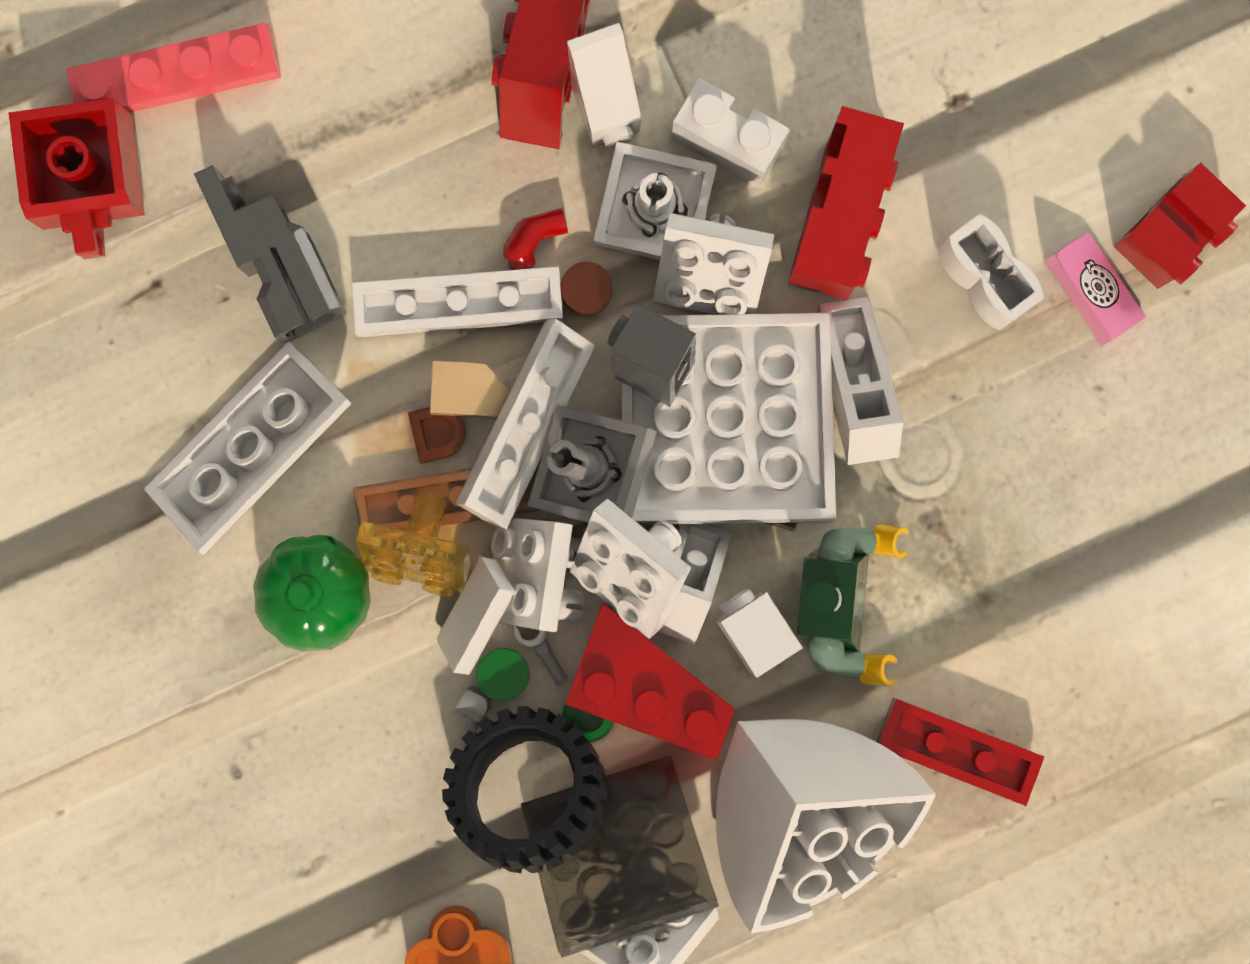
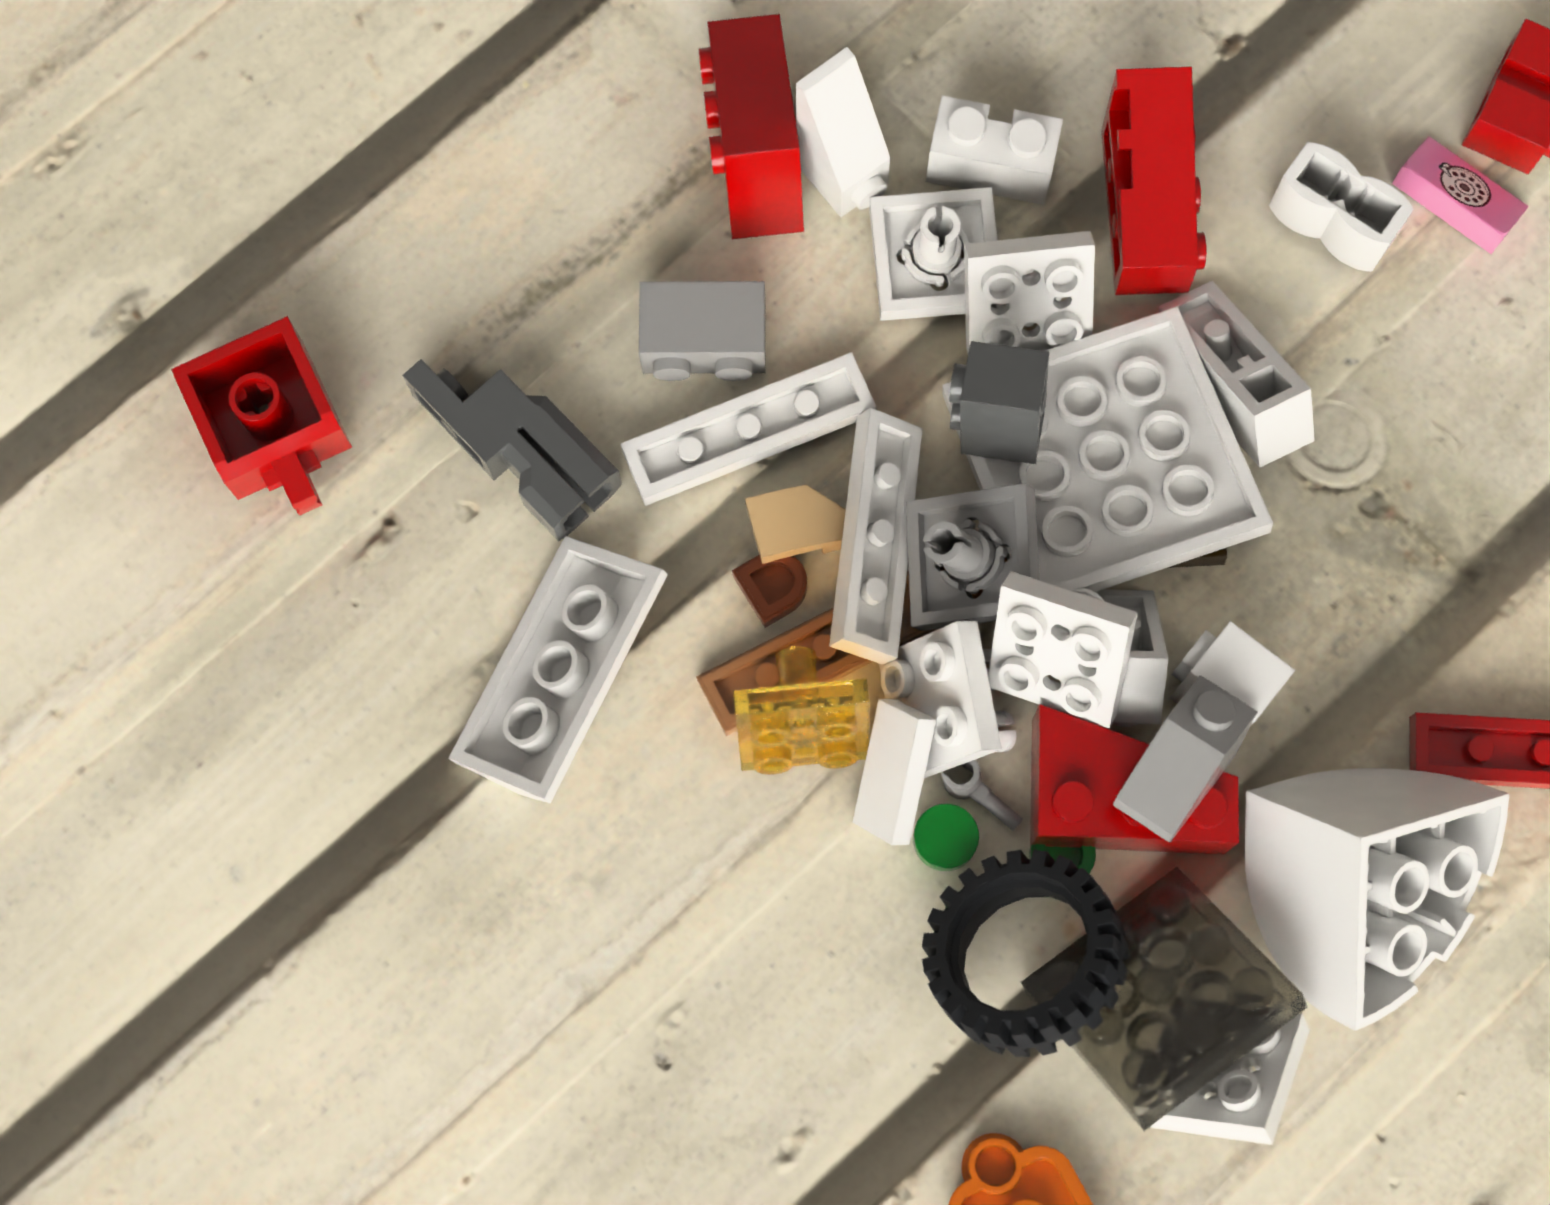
camera: 15 degrees left, 10 degrees down
(179, 70) = (346, 273): coral plate -> none
(312, 593) = (692, 808): green piece -> none
(447, 209) = (702, 329): none -> light grey brick
(473, 705) = (924, 885): light grey hand -> none
(528, 234) = (803, 331): red arm -> none
(586, 288) = (890, 370): copper tile -> none
(692, 688) = (1185, 758): none -> light grey slope
(835, 601) = (1306, 623): torso -> none

